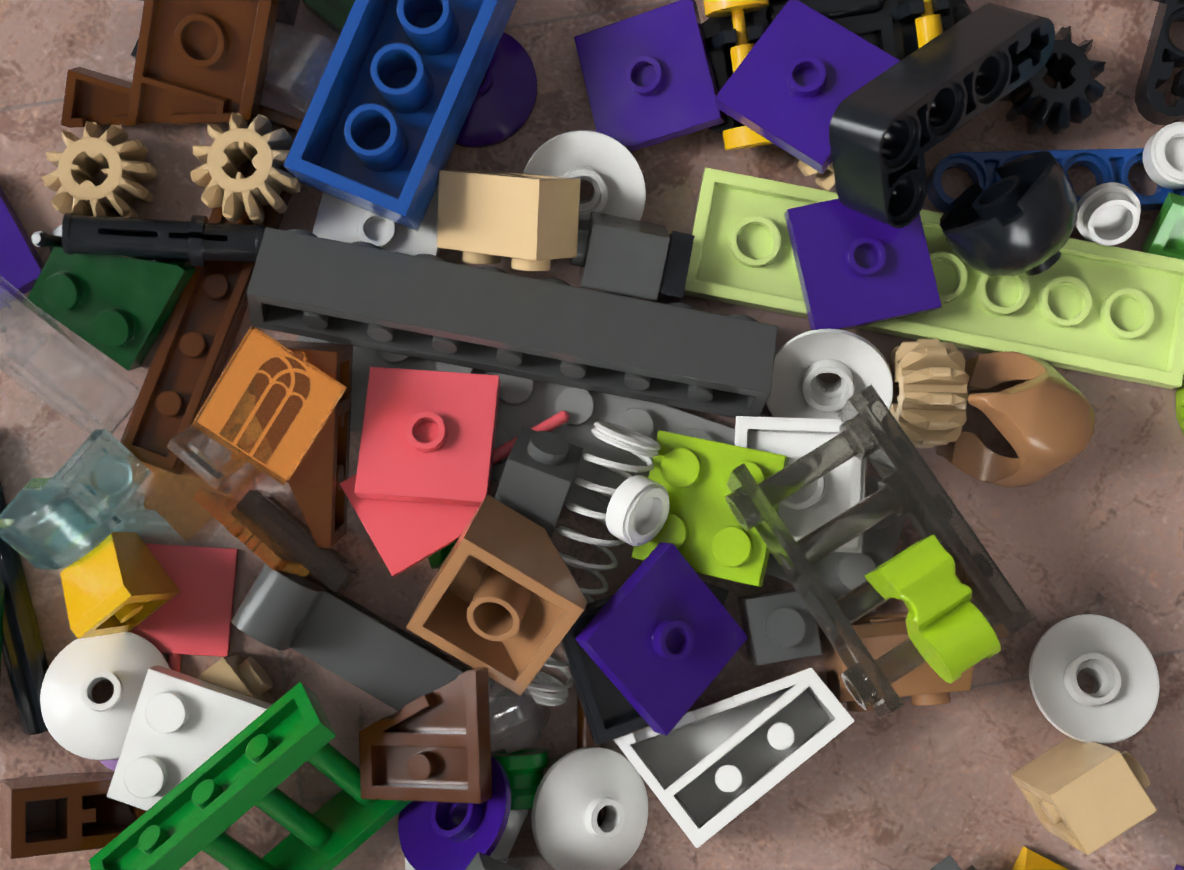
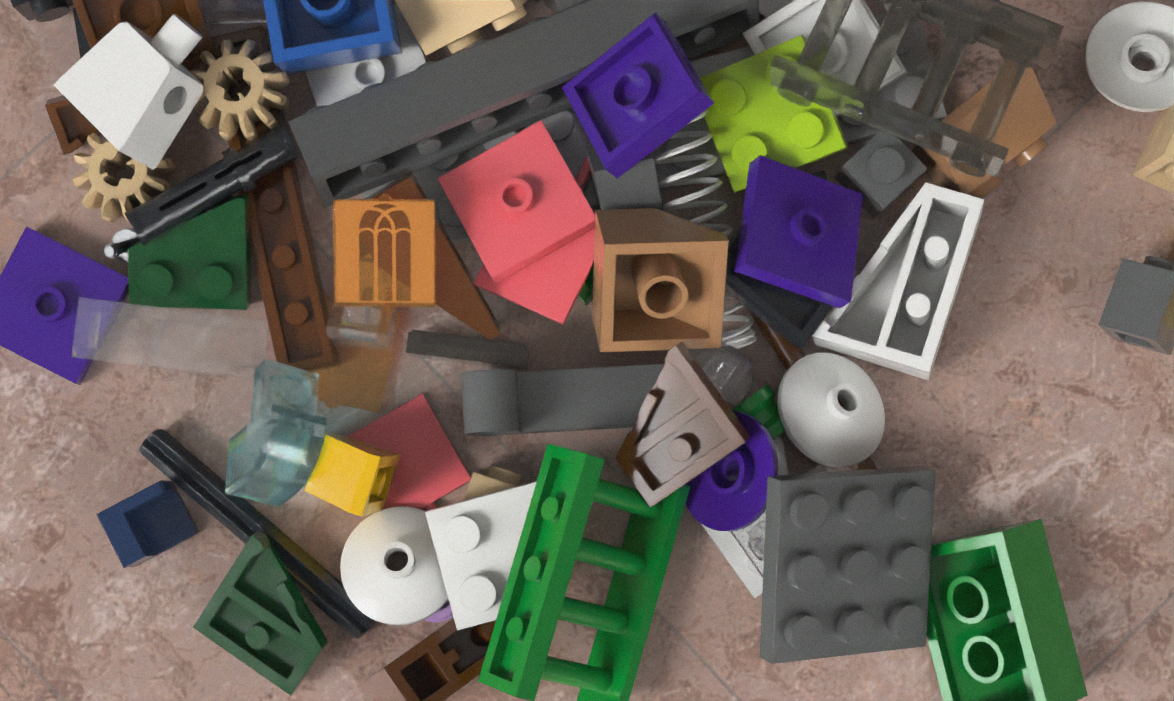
camera: 25 degrees left, 0 degrees up
(146, 108) = (137, 87): none -> white torso
(225, 511) = (428, 361): clear orange piece -> none
(593, 415) = (637, 95): none -> dark purple plate
(637, 510) = (717, 148): white tile -> none
(940, 615) = (997, 69): lime leg -> none

